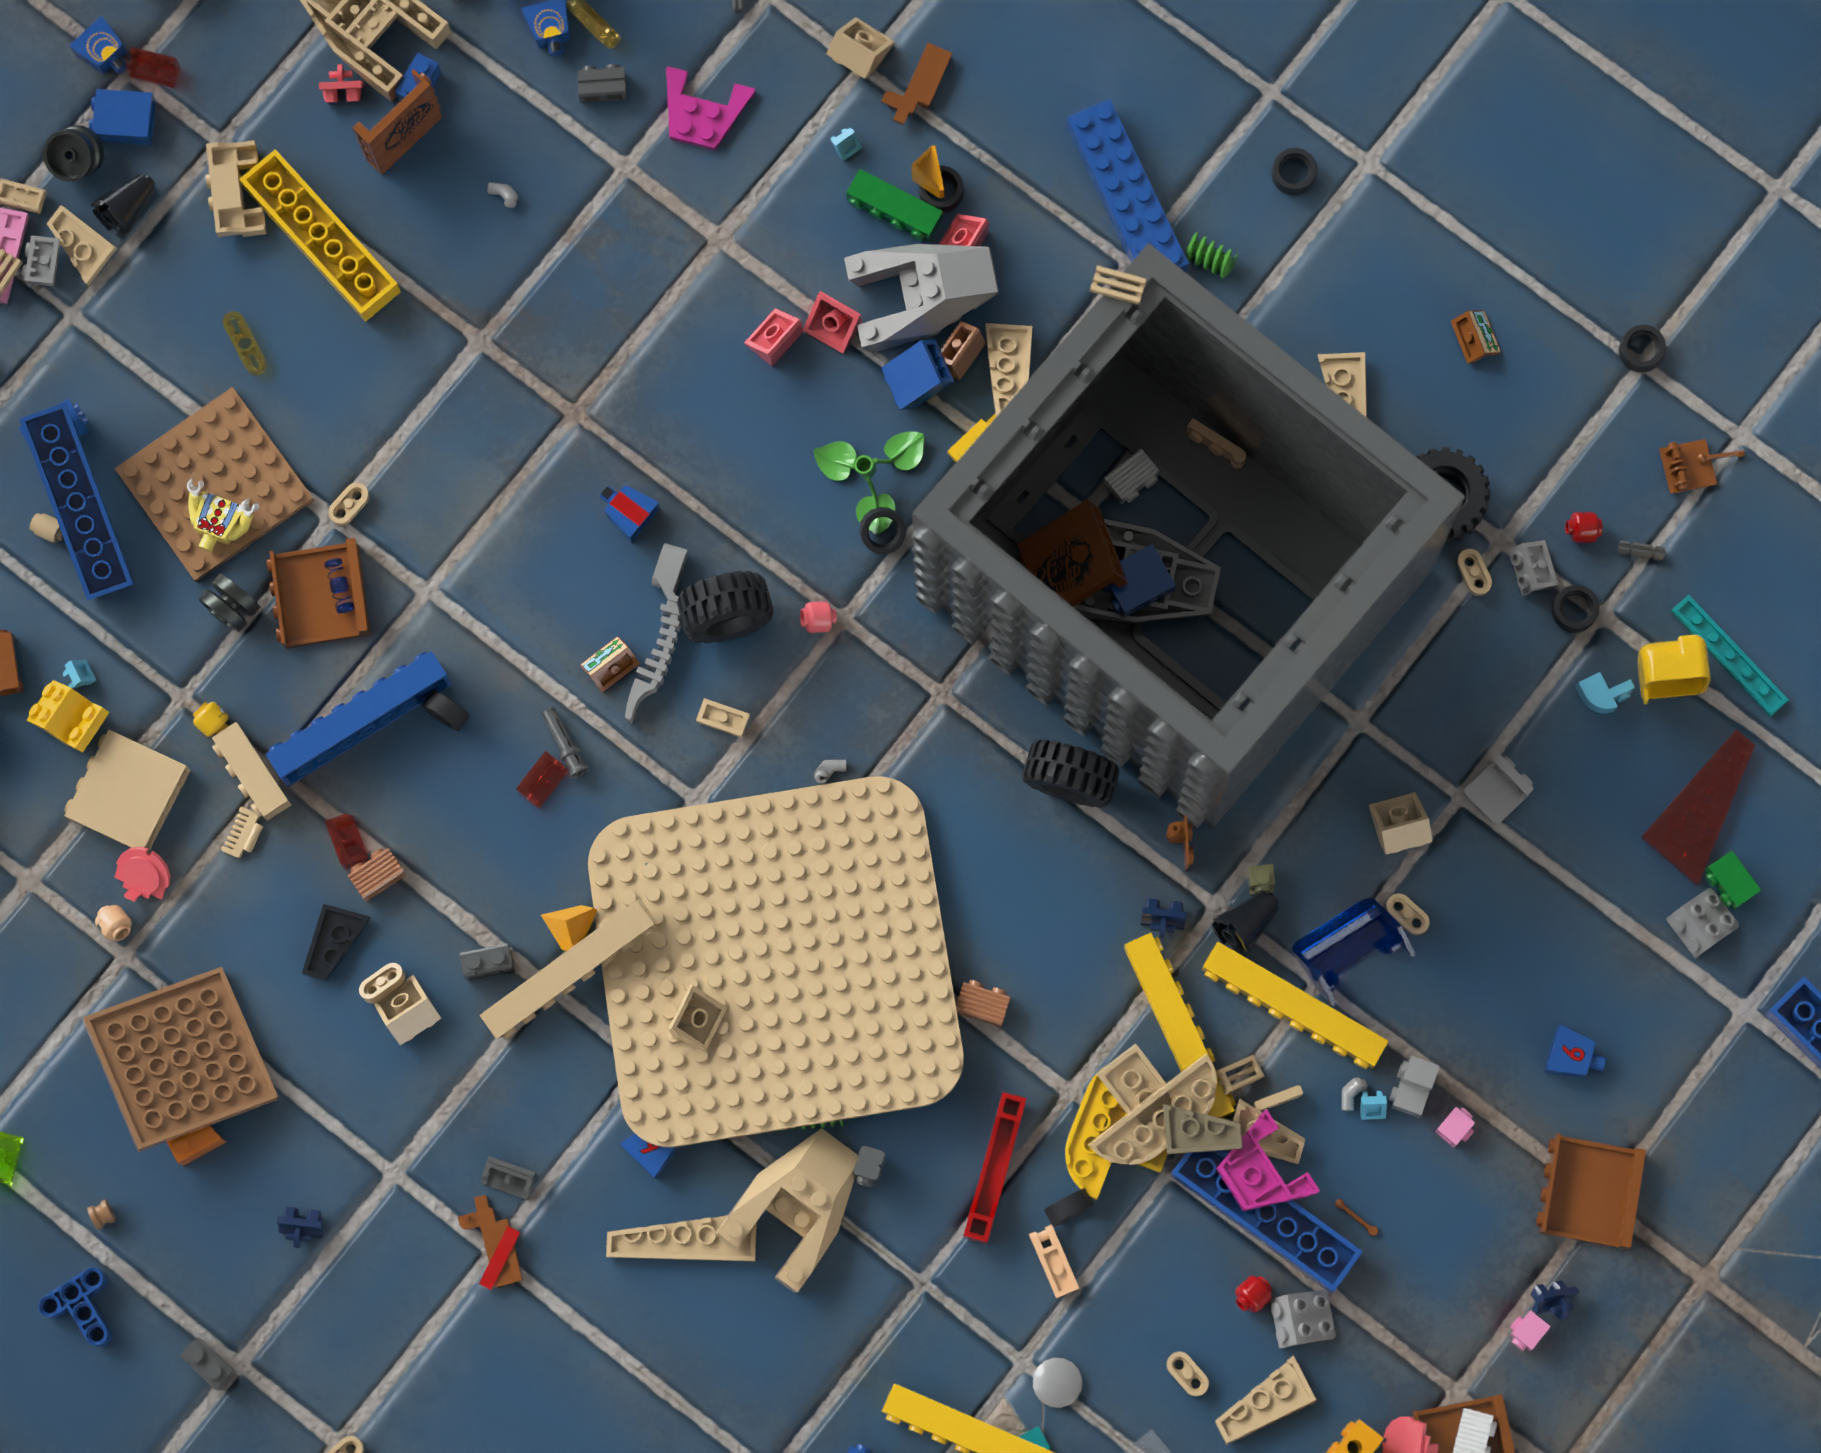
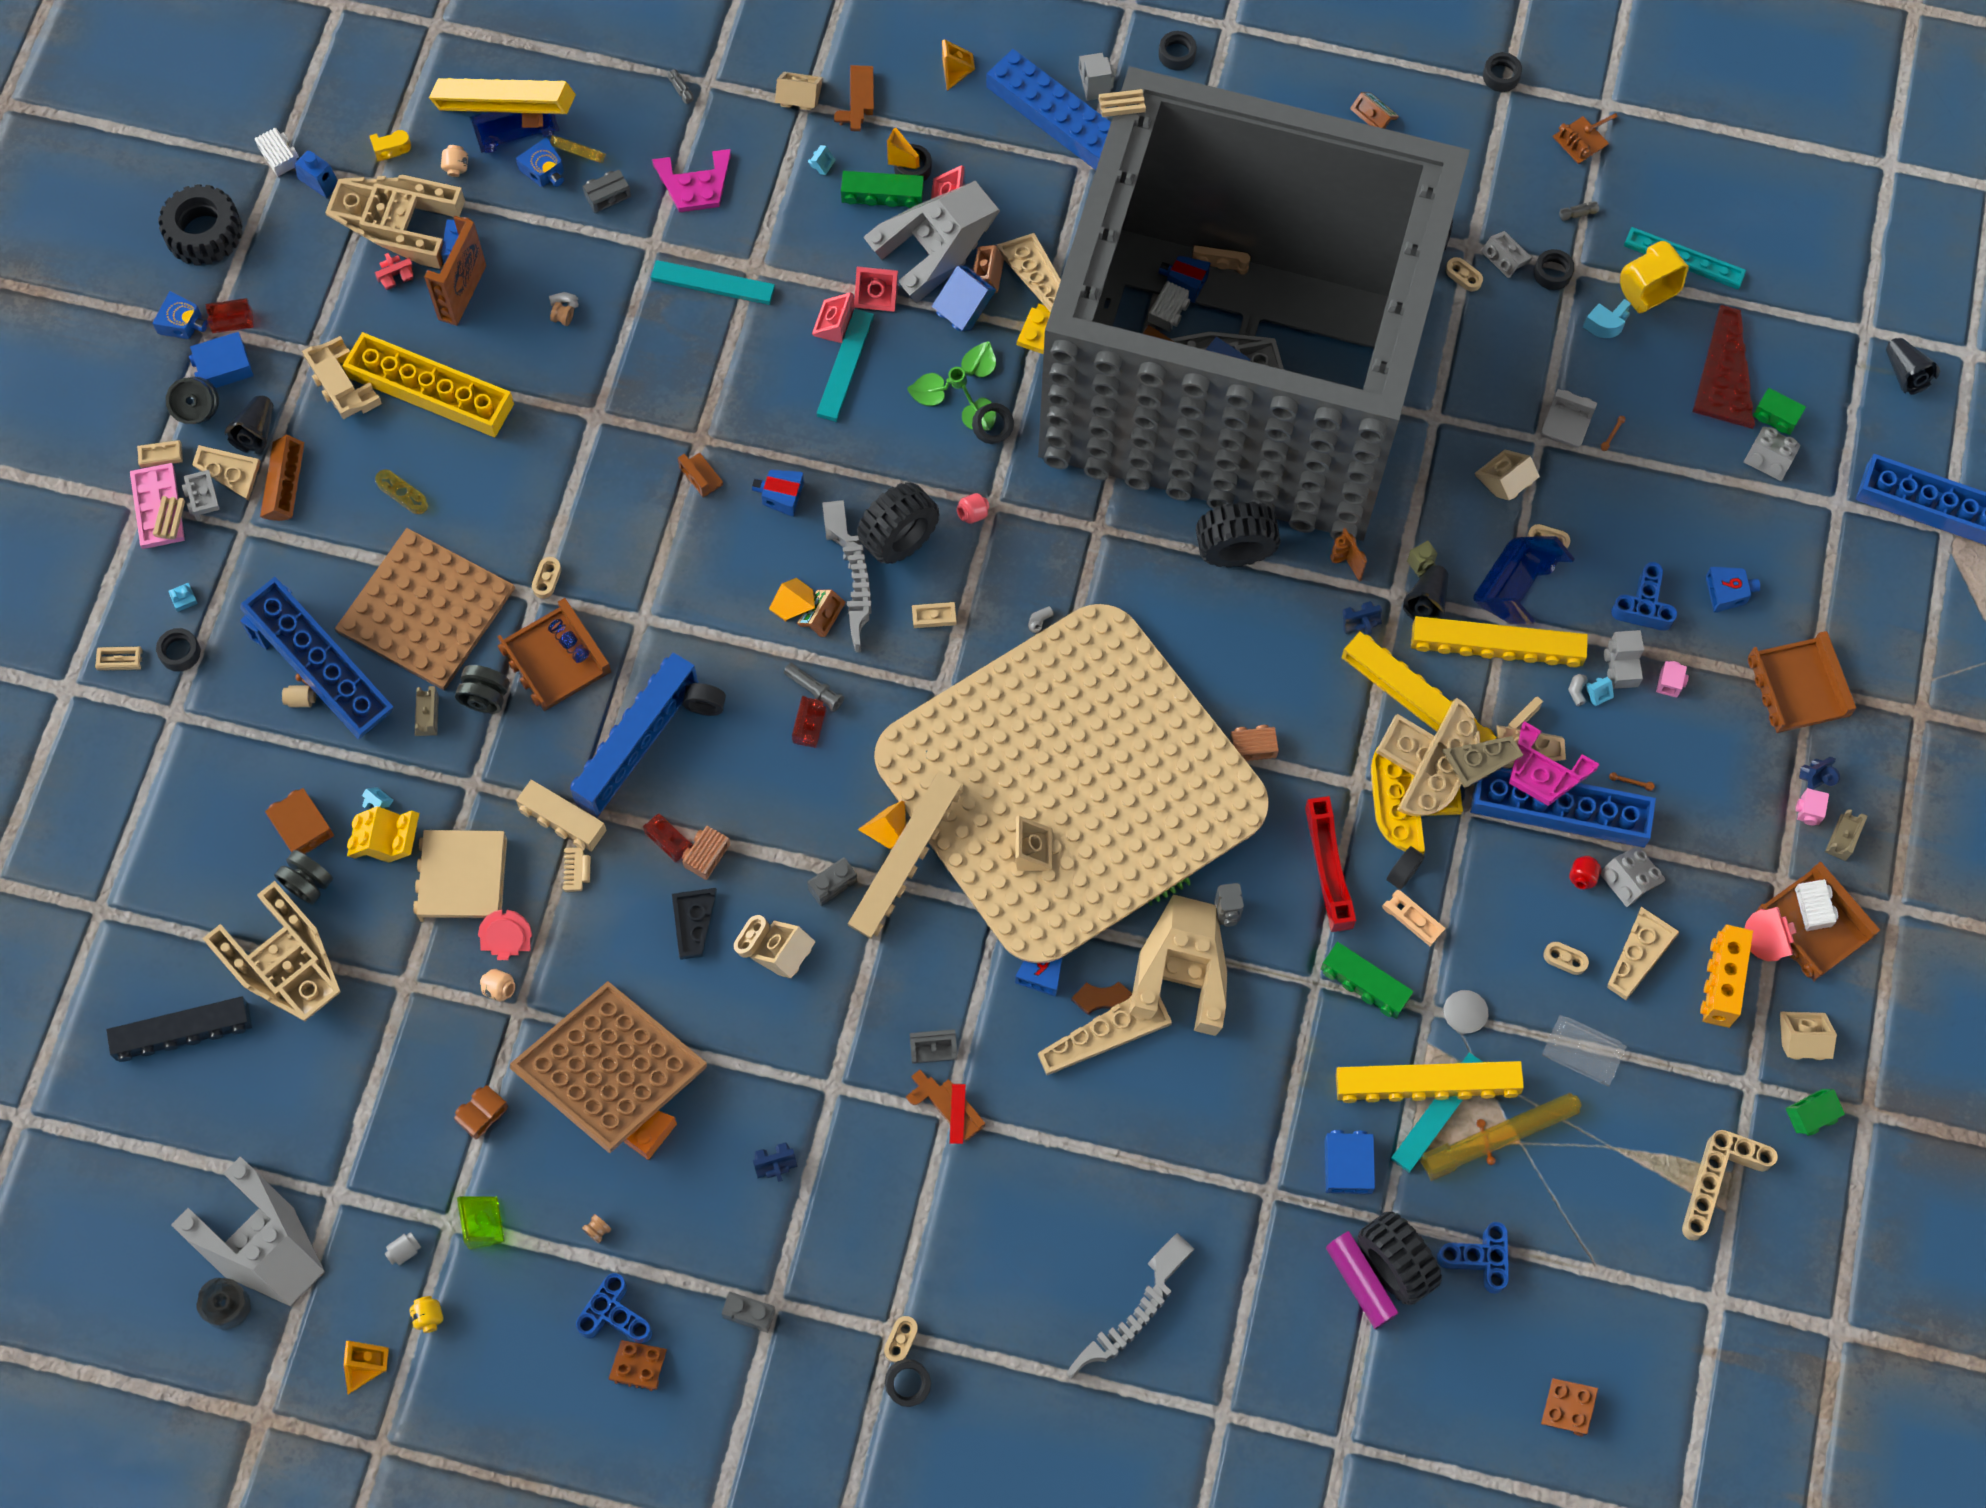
camera: 30 degrees left, 10 degrees down
(42, 1046) = (480, 1111): none -> dark orange brick
(82, 1366) = (637, 1365): none -> dark orange hinge
(130, 277) = (282, 479): none -> dark orange brick
(167, 600) = (426, 712): none -> dark tan hinge
(210, 719) = (506, 788): yellow head -> none
(217, 517) = (442, 626): torso -> none
(493, 210) = (562, 313): none -> medium nougat wheel
(556, 454) = (700, 474): none -> dark orange panel
(588, 637) = (792, 599): none -> light orange slope
(667, 238) = (712, 282): none -> teal tile
(689, 1198) = (1093, 998): none -> reddish brown tile
(762, 394) = (845, 365): none -> teal tile
(972, 1306) = (1366, 980): none -> green brick
(1044, 86) = (956, 63): none -> light orange slope
(1168, 448) = (1187, 274): none -> blue torso
(1187, 166) = (1096, 75): none -> light grey brick
(1226, 1080) = (1480, 716): tan tile -> none
(1472, 1031) = (1646, 603): none -> blue beam
(1525, 835) = (1605, 445): none -> dark orange hinge
(1547, 1375) = (1845, 835): none -> dark tan hinge
(1584, 527) = (1529, 209): red head -> none

